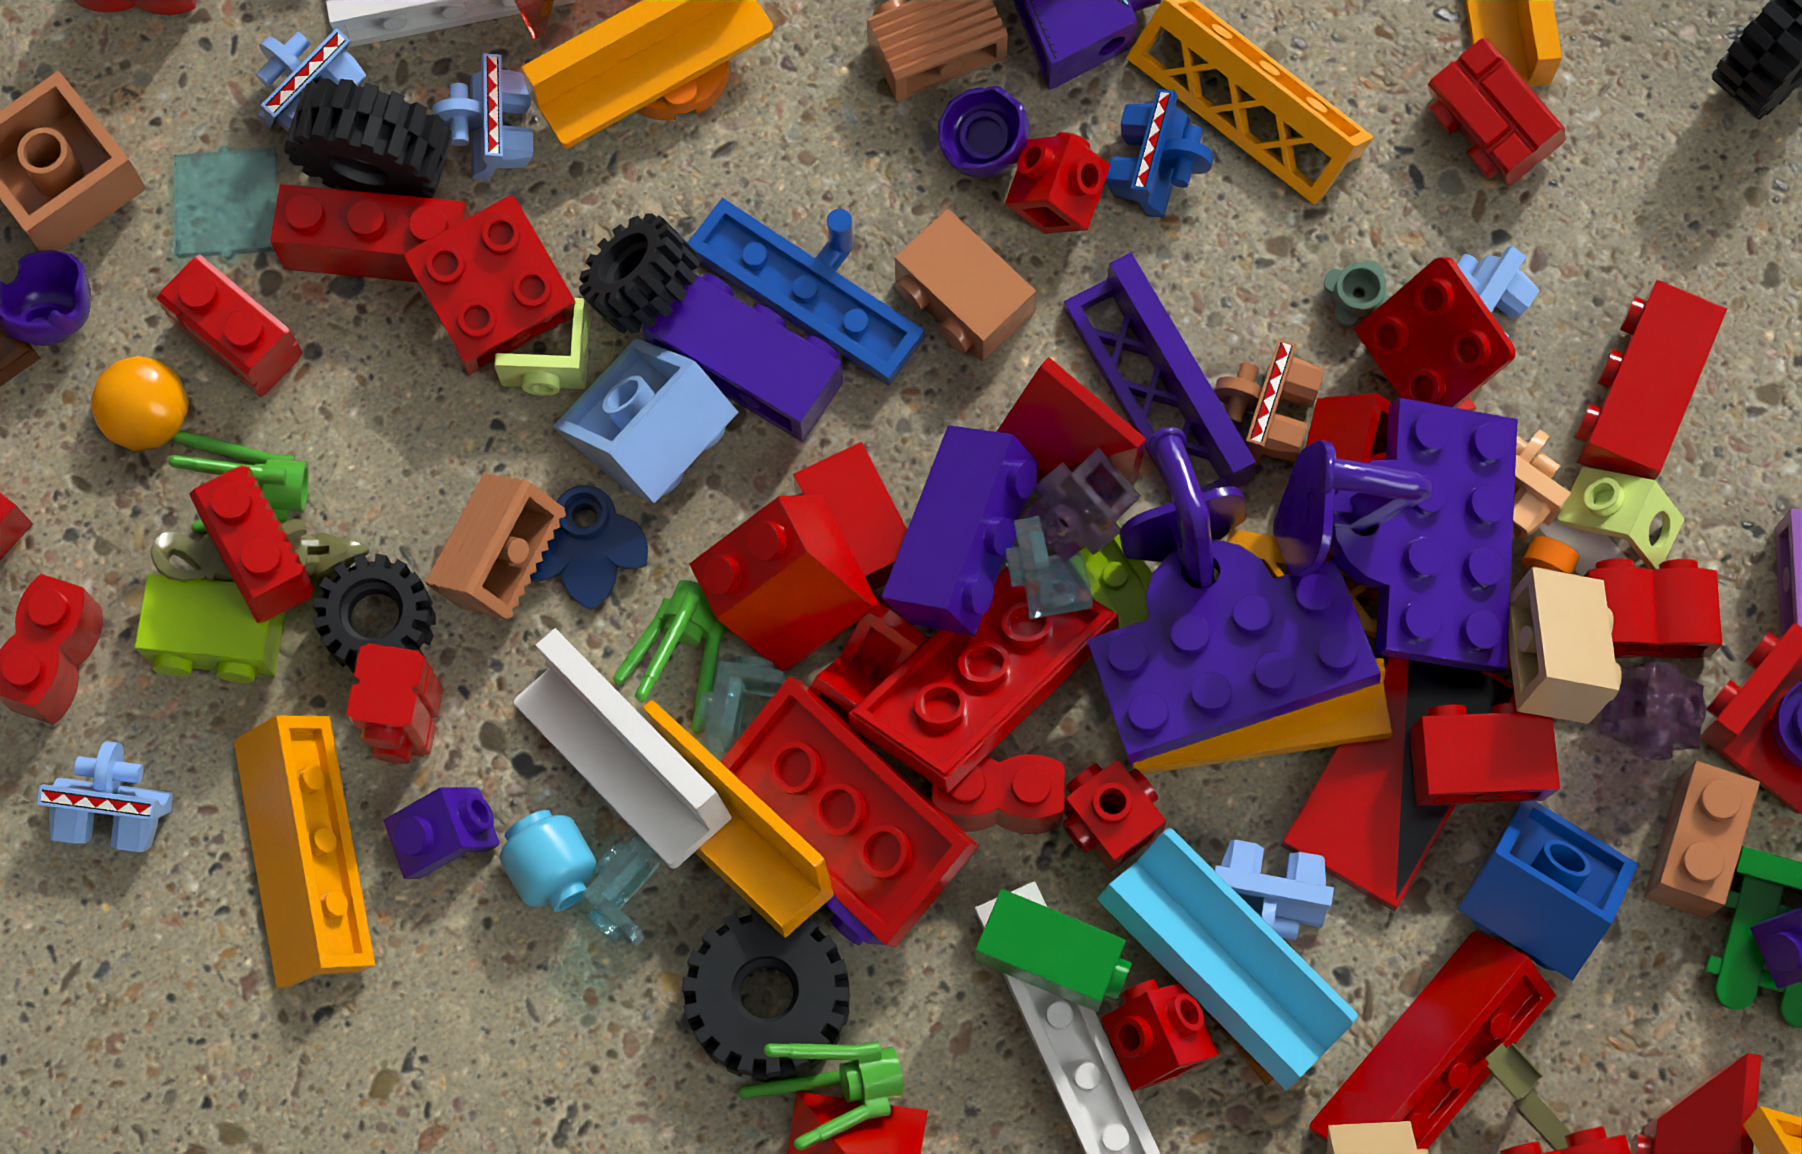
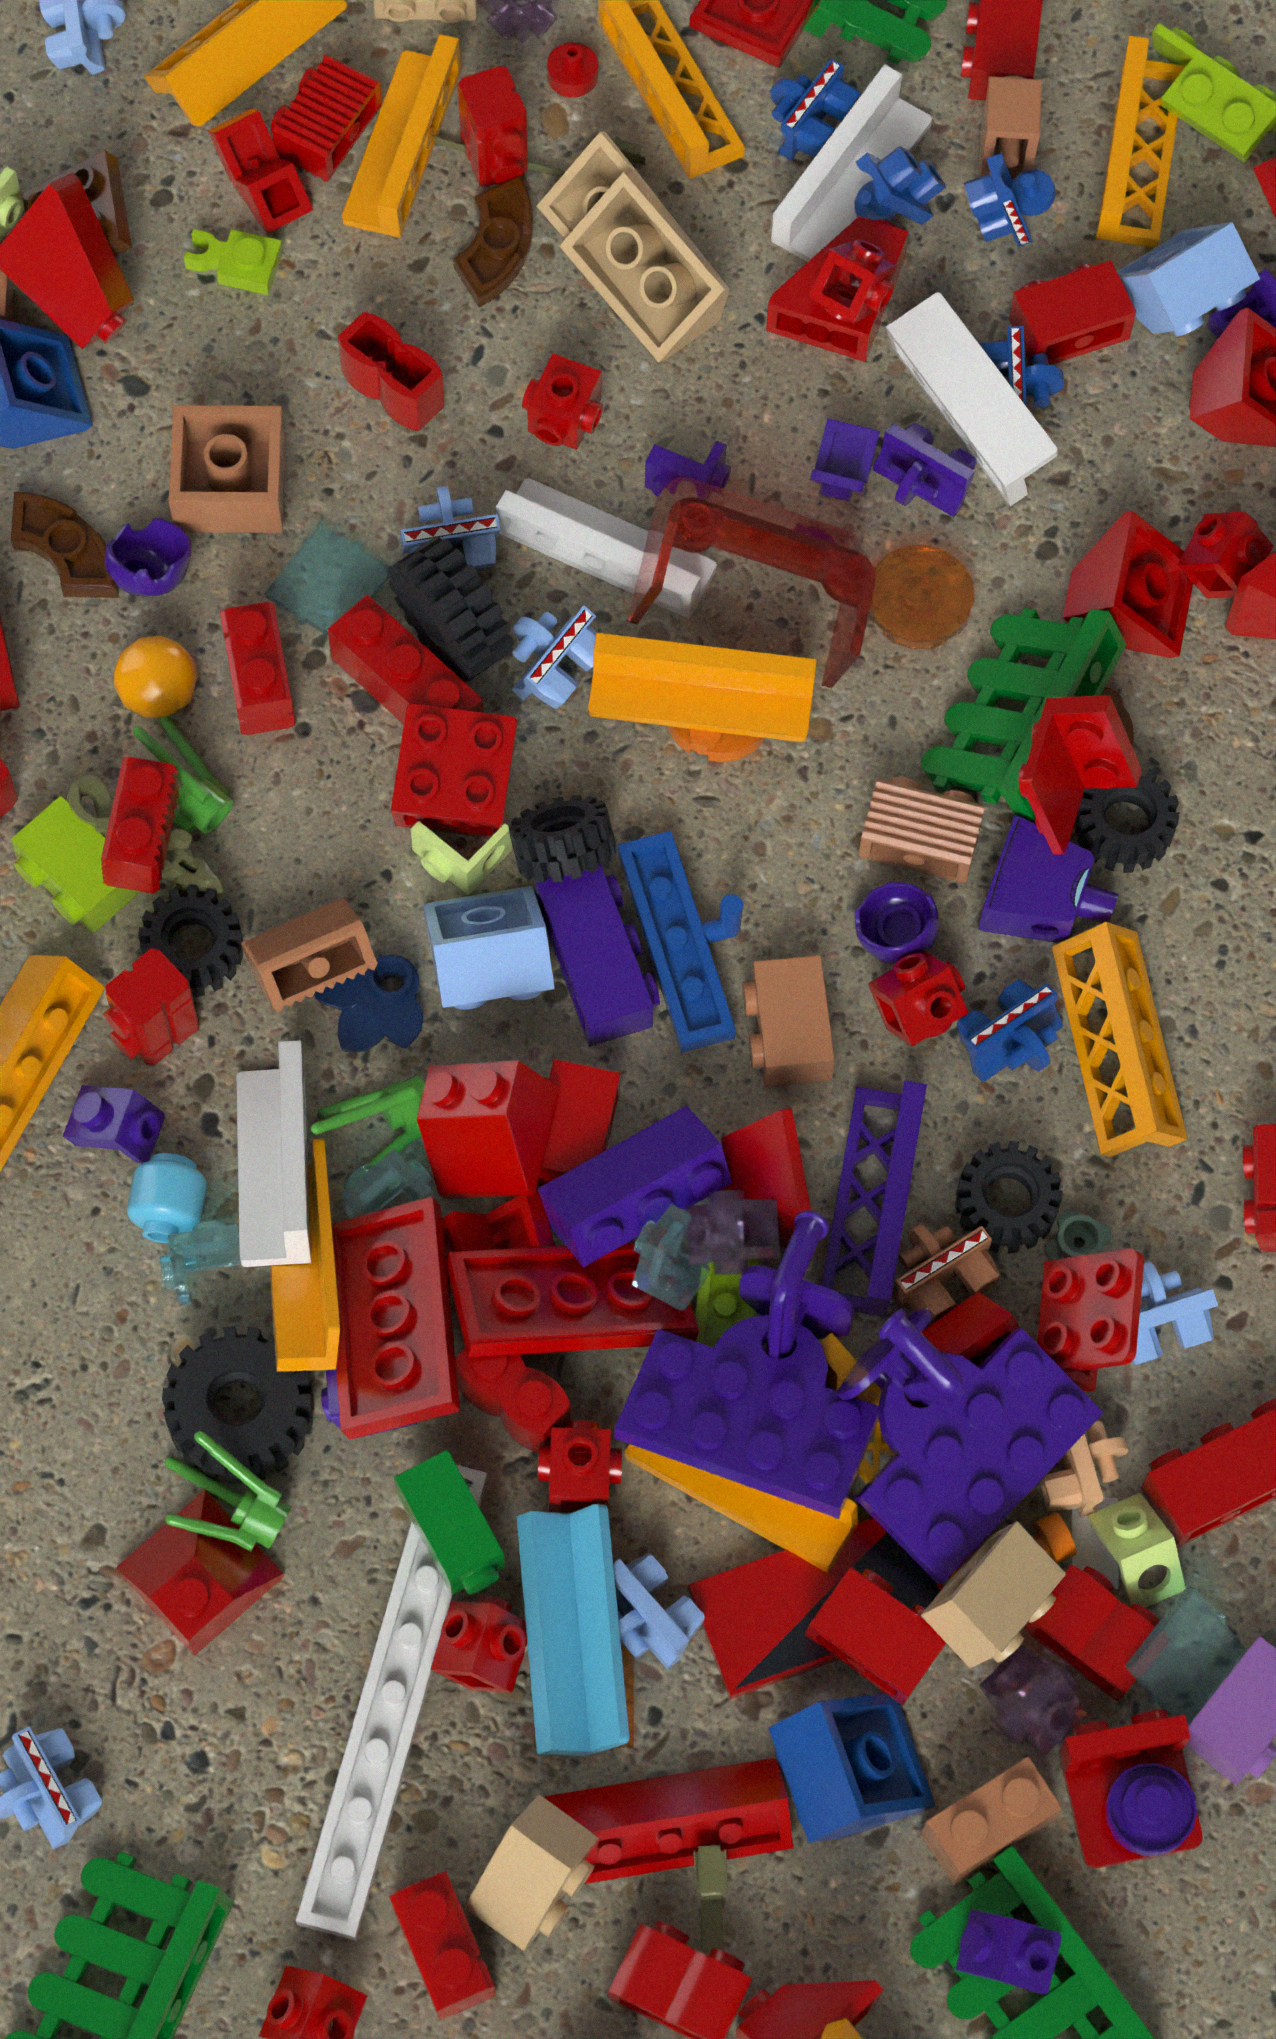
camera: 35 degrees right, 5 degrees down
(1280, 265) = (1015, 1165): none -> black tyre
(1741, 574) = (1186, 1656): none -> clear light blue piece

